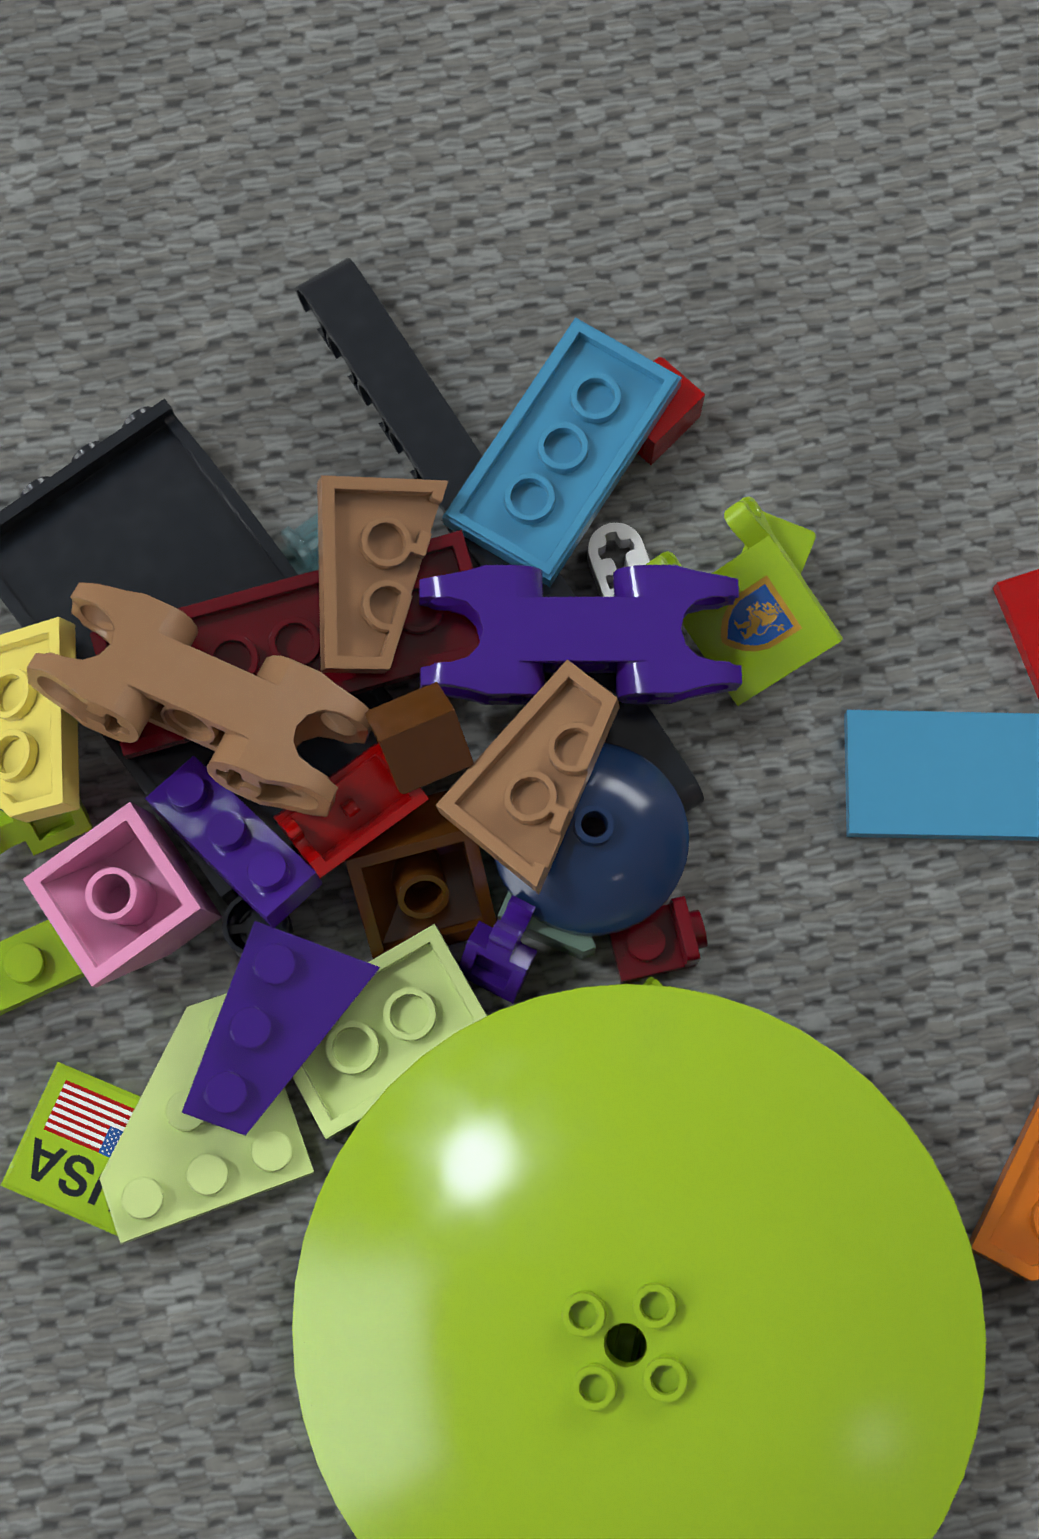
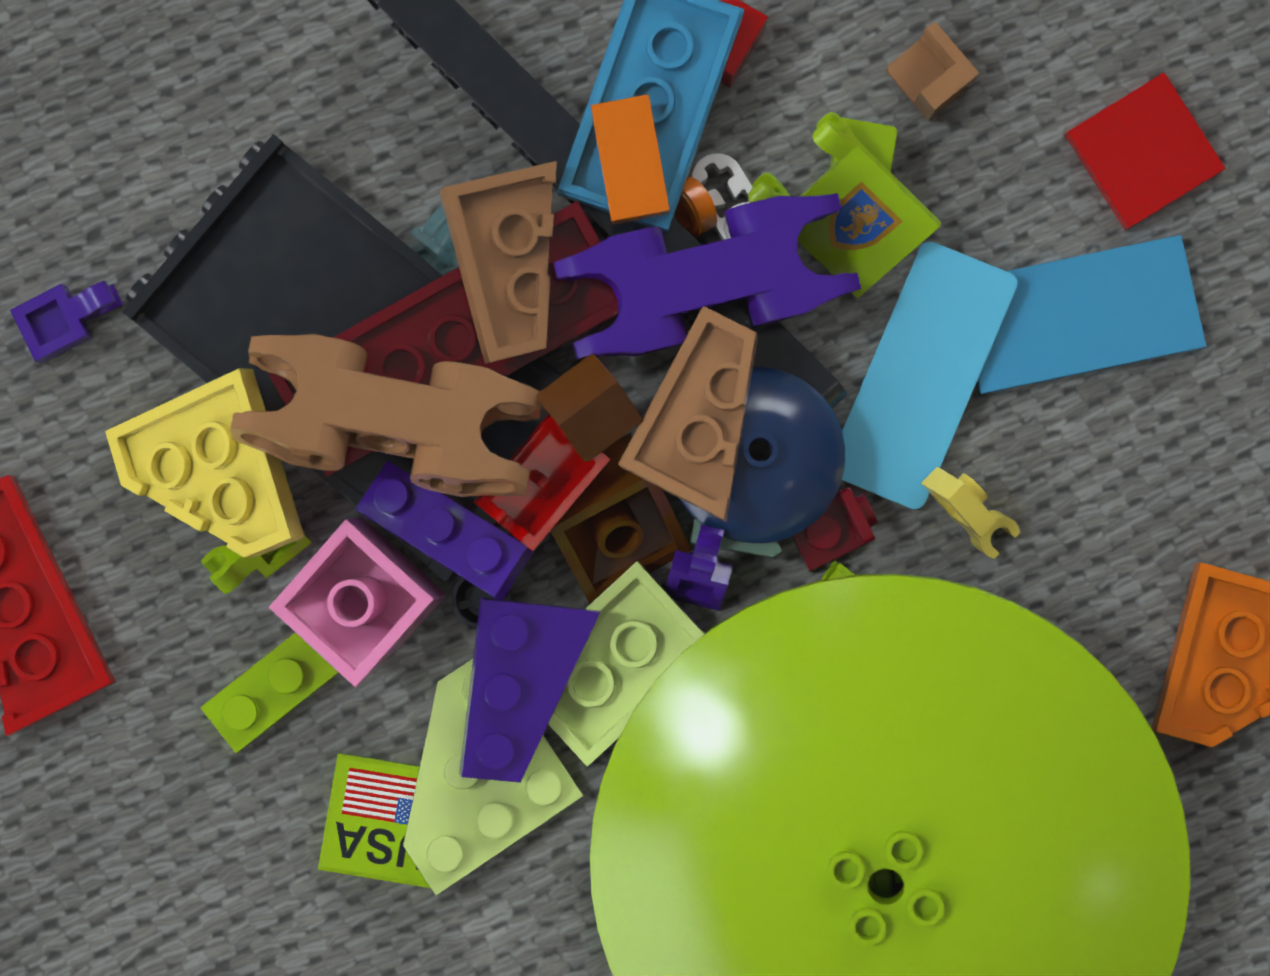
camera: 15 degrees left, 10 degrees up
(526, 498) = (630, 159): none -> orange tile
(585, 570) = (696, 209): none -> orange tile
(791, 800) = (924, 372): none -> medium azure piece
(806, 944) = (963, 502): none -> light yellow plate
(867, 492) = (932, 72): none -> medium nougat panel

